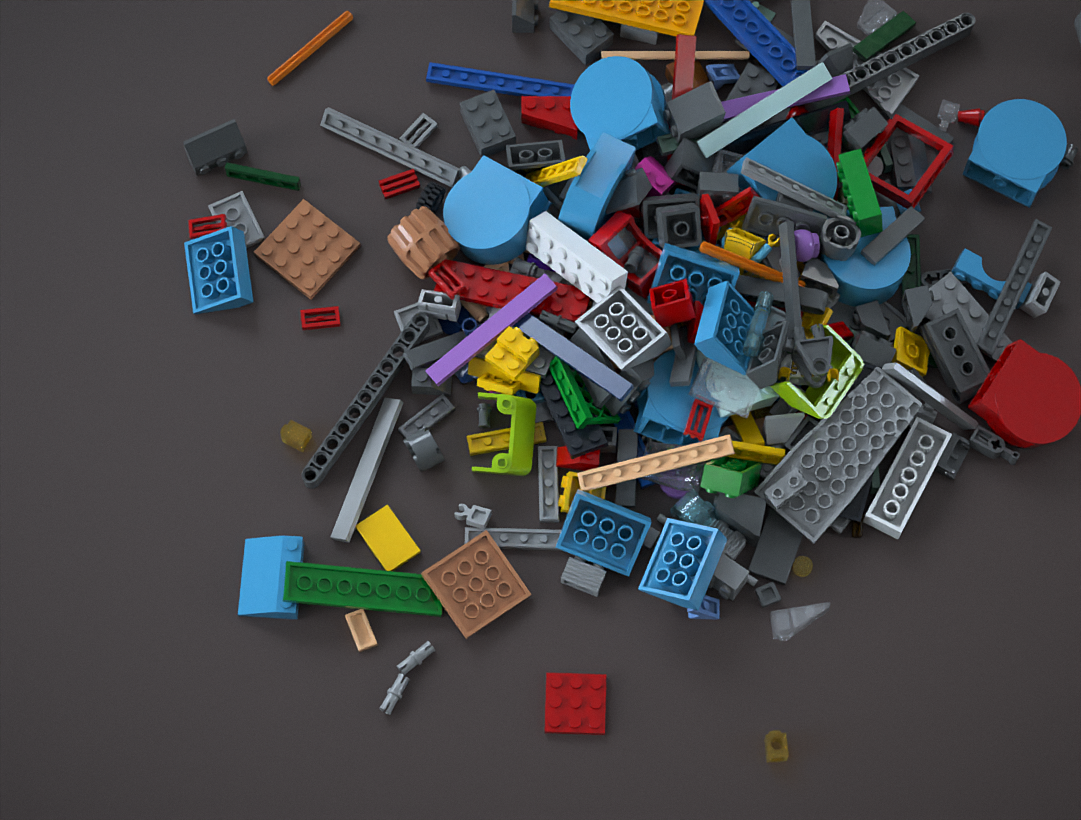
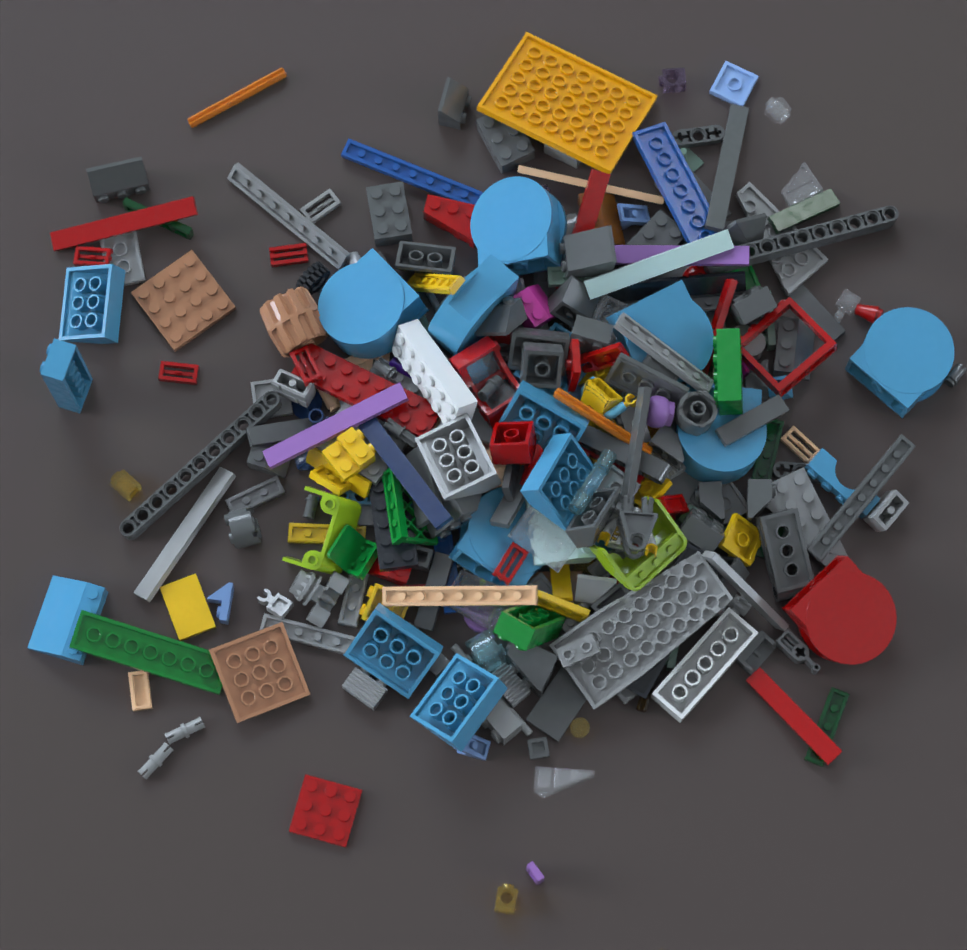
camera: 15 degrees right, 5 degrees up
(215, 338) = (66, 375): none -> dark azure brick
(231, 187) = (124, 223): none -> red tile
(421, 521) = (224, 597): none -> medium blue slope
(504, 492) = (308, 588): none -> light grey beam
(539, 448) = (353, 552): none -> green bracket
(798, 713) = (535, 873): none -> medium lavender tile
(938, 259) = (795, 450): none -> light nougat tile
(1006, 507) = (794, 716): none -> red tile
(1039, 511) = (829, 720): none -> dark green tile

